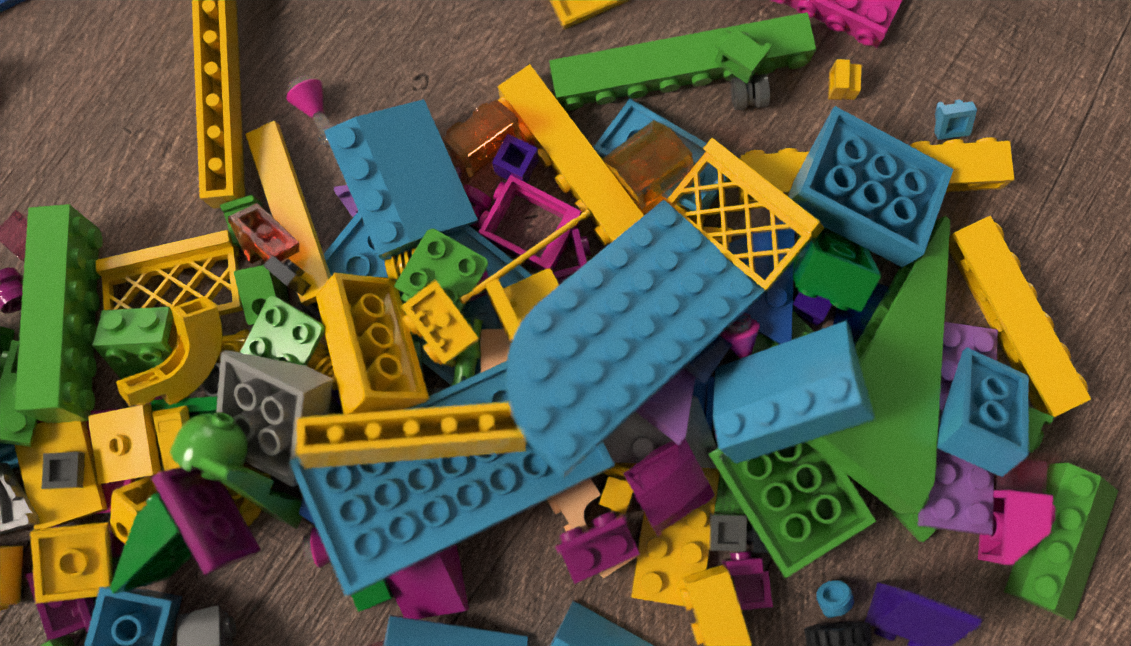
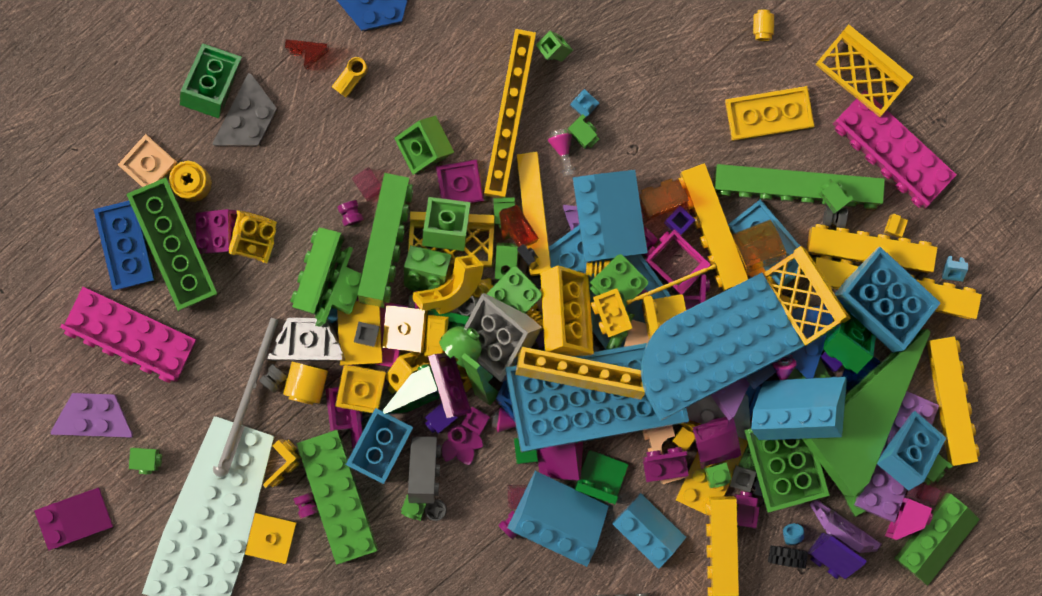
camera: 10 degrees right, 5 degrees up
(100, 156) = (424, 144): none -> bright green slope
(148, 262) = (446, 224): none -> bright green slope
(170, 201) = (460, 182): none -> magenta tile
(222, 581) = (437, 419): none -> dark purple brick
(270, 609) = (463, 447): none -> magenta plate
(279, 559) = (475, 420): none -> magenta plate
(330, 34) = (584, 103): none -> dark azure tile
(337, 73) = (583, 132): none -> bright green brick
(502, 595) = (601, 477): none -> green bracket
(687, 539) = (717, 475): none -> bright green brick
(800, 122) = (860, 246): none -> yellow brick
(913, 570) = (843, 529): none -> medium lavender wing

